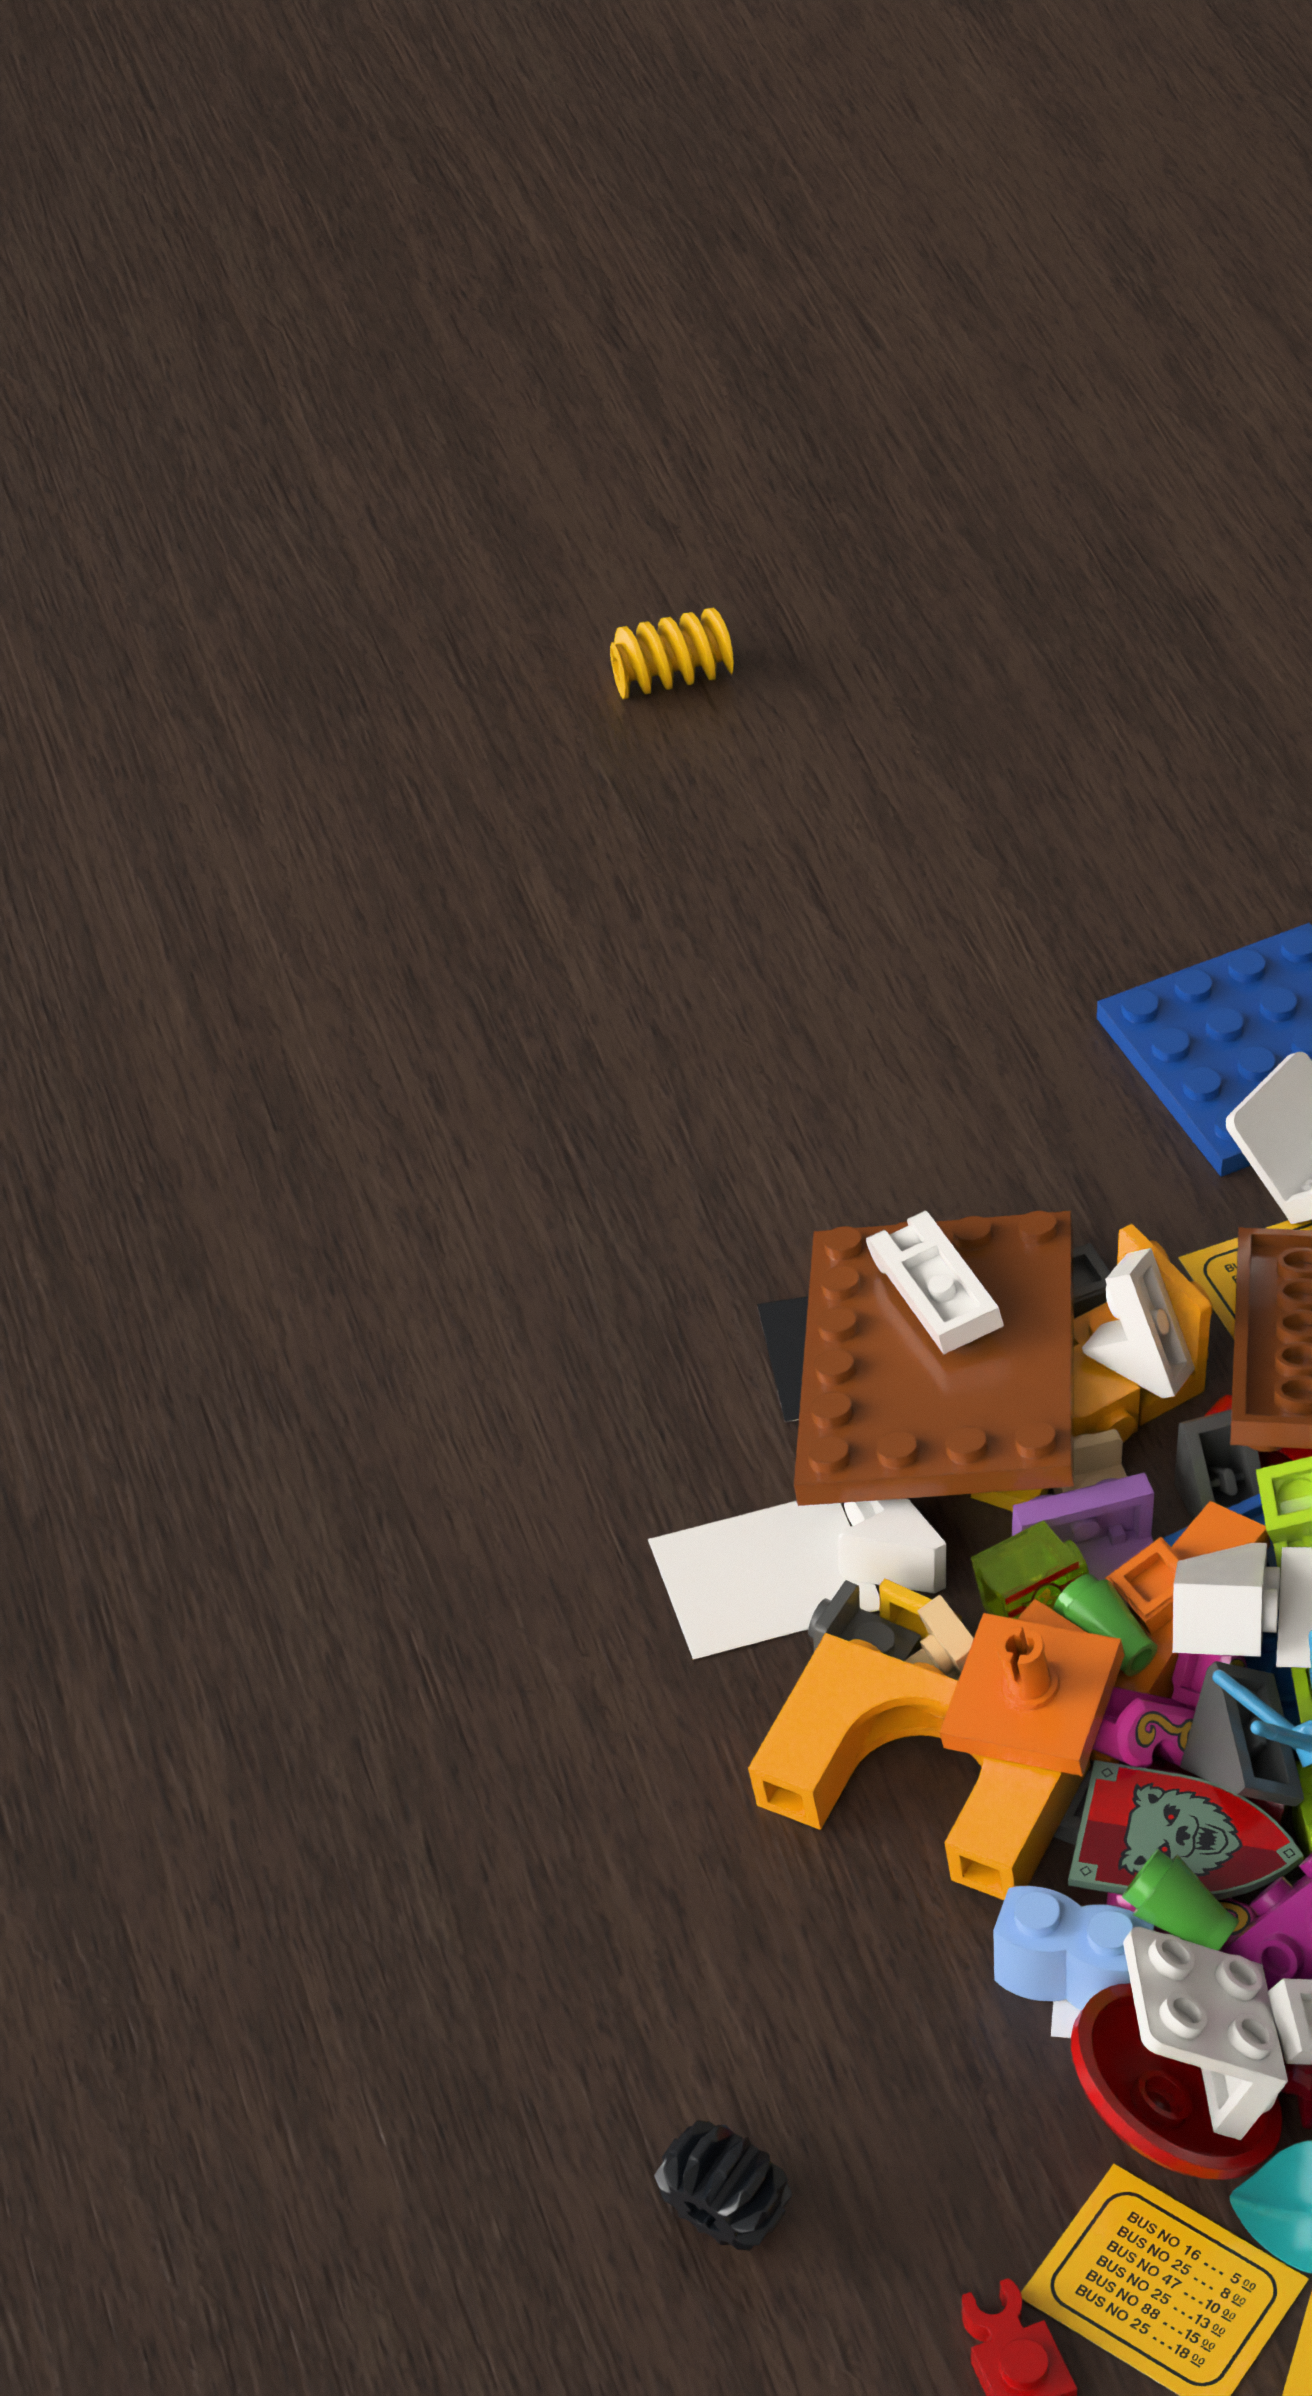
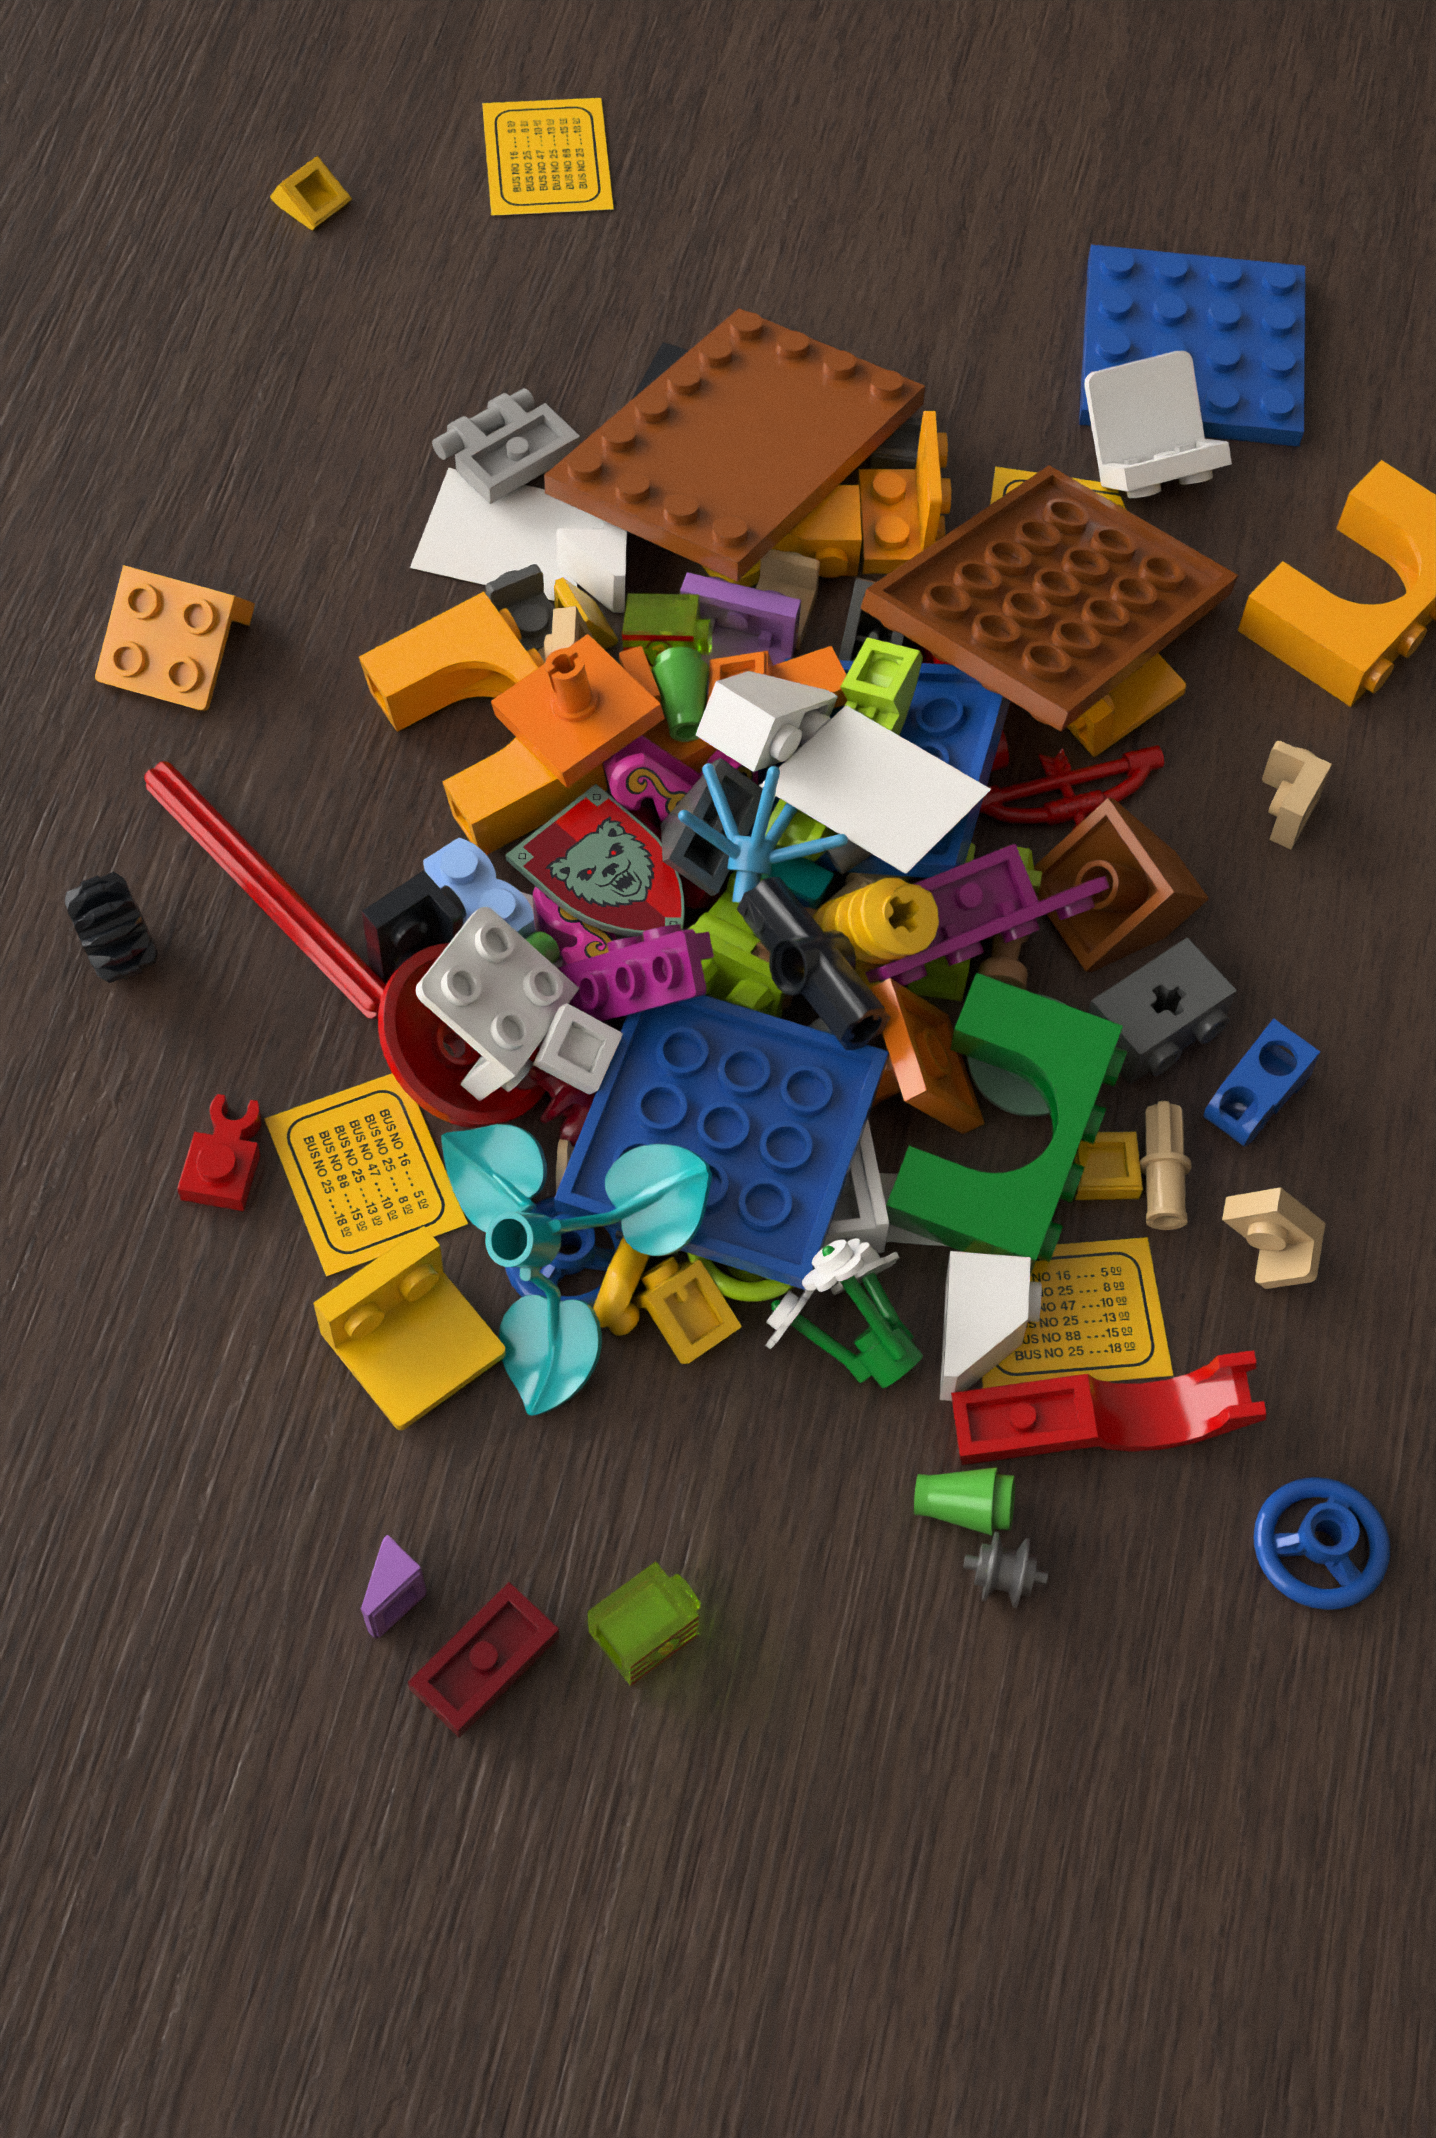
camera: 25 degrees right, 15 degrees up
(277, 1340) = (311, 194): none -> yellow slope
(485, 1182) = (547, 156): none -> yellow sticker
(520, 1862) = (168, 637): none -> light orange bracket
(715, 1487) = (513, 454): none -> light grey plate
(832, 2059) = (266, 888): none -> red axle
(935, 1282) = (767, 383): white plate -> none
(1044, 1999) = (409, 921): none -> black bracket
(1148, 1337) = (892, 500): white slope -> none
(1178, 1902) = (557, 912): bright green cone -> none

